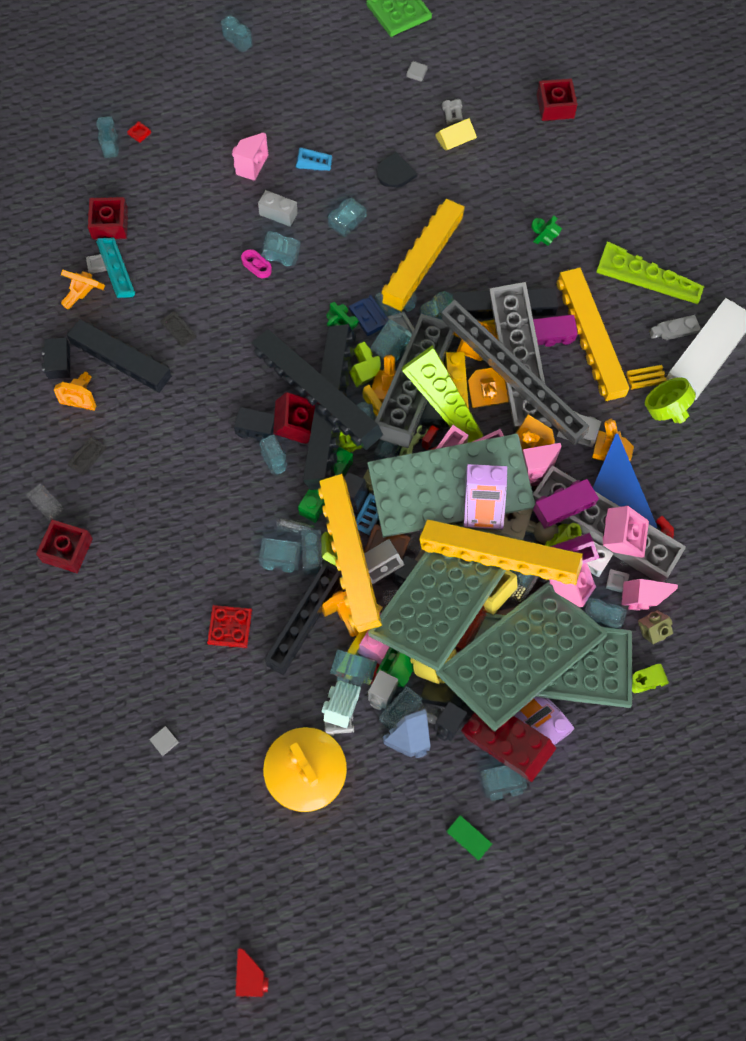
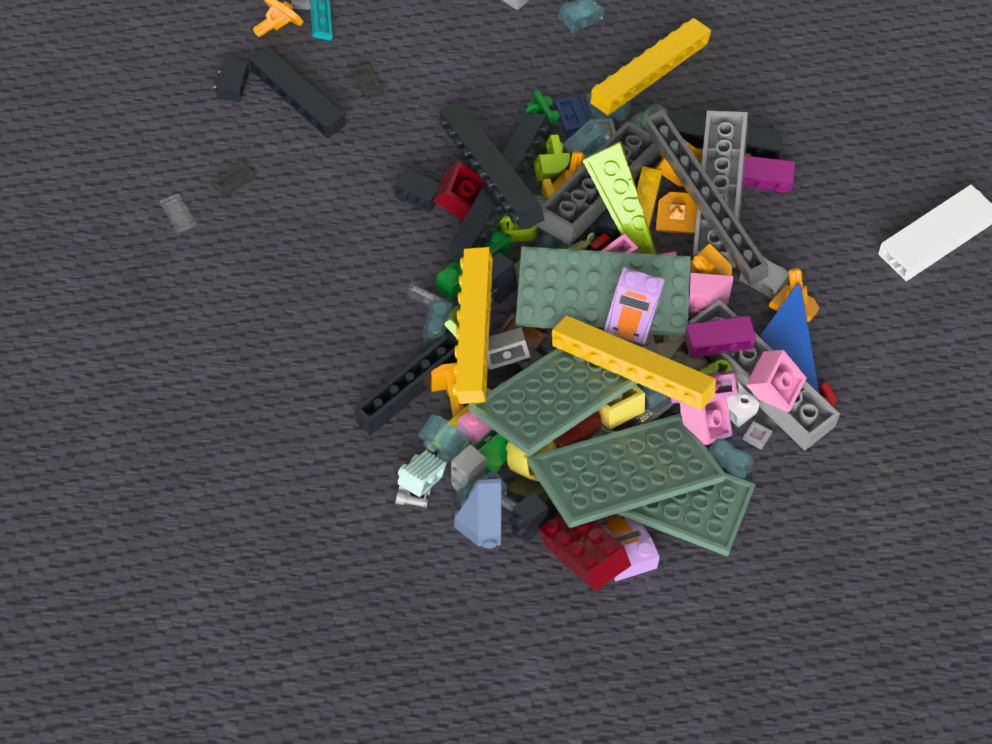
camera: 15 degrees right, 10 degrees down
(64, 546) = (184, 256): dark red brick -> none
(76, 393) = (240, 116): light orange piece -> none
(164, 741) = (227, 464): light grey tile -> none
(229, 626) = (329, 375): red tile -> none
(250, 977) = (244, 703): red slope -> none
(257, 264) = (471, 37): dark pink plate -> none
(273, 454) = (427, 221): clear light blue brick -> none
(280, 249) = (499, 27): clear light blue brick -> none
(280, 555) = (403, 319): clear light blue brick -> none
(305, 769) = (363, 527): yellow bracket -> none
(370, 498) = (511, 295): dark azure slope -> none
(469, 837) = (514, 637): green tile -> none
(502, 781) = (567, 591): clear light blue brick -> none
(546, 231) = (793, 74): green hips -> none
(593, 335) = (811, 189): yellow brick -> none
(631, 269) = (873, 132): lime wing -> none
(645, 593) = (781, 447): bright pink slope -> none
(649, 678) = (758, 535): lime piece -> none
(655, 626) = (783, 486): olive brick -> none
(660, 373) = (857, 242): yellow tile -> none
(671, 400) = (874, 270): lime piece -> none
(676, 328) = (906, 204): light grey hinge -> none

